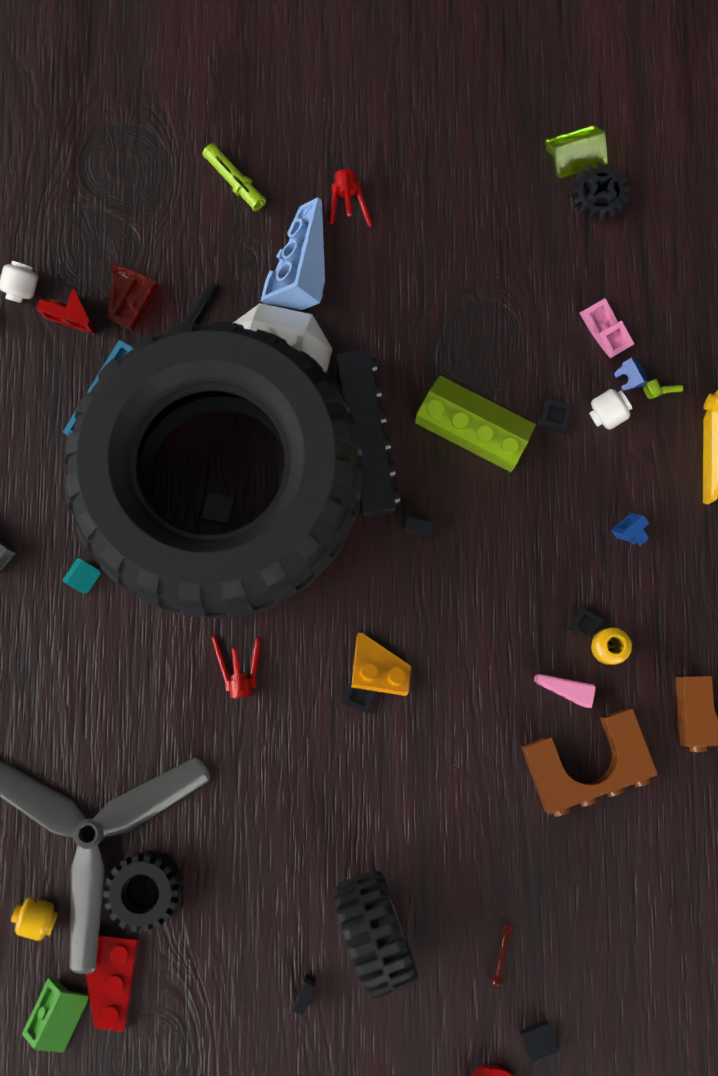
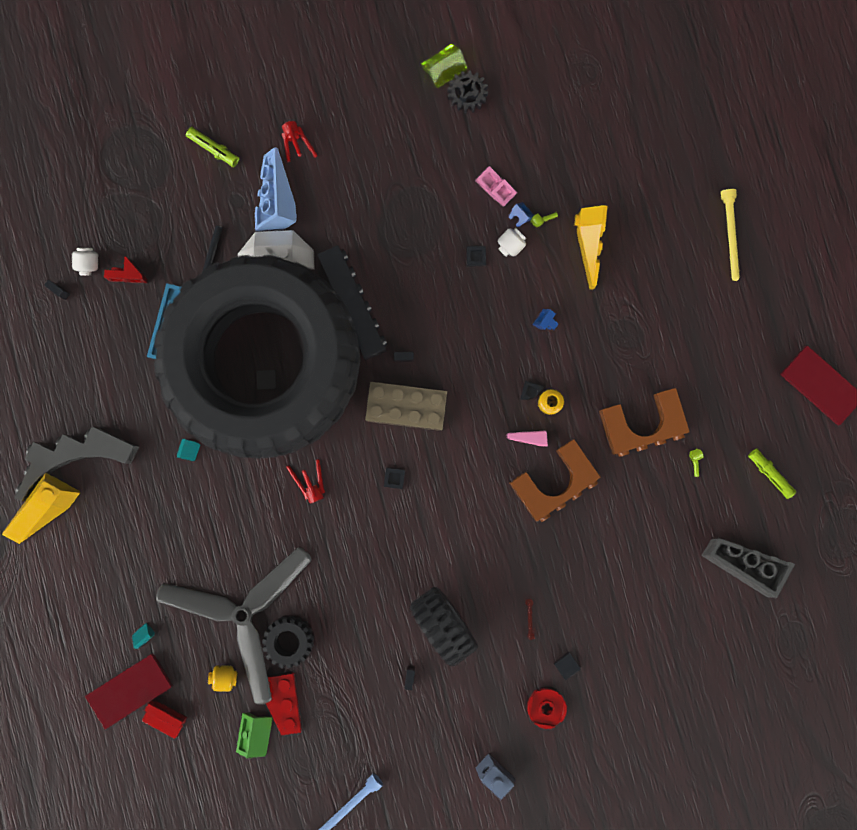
camera: 15 degrees left, 5 degrees up
(129, 296) = (164, 250): clear red wing -> none
(378, 668) = (402, 457): light orange wing -> none
(404, 597) = (406, 406): none -> dark tan brick
(475, 423) = (423, 275): lime slope -> none

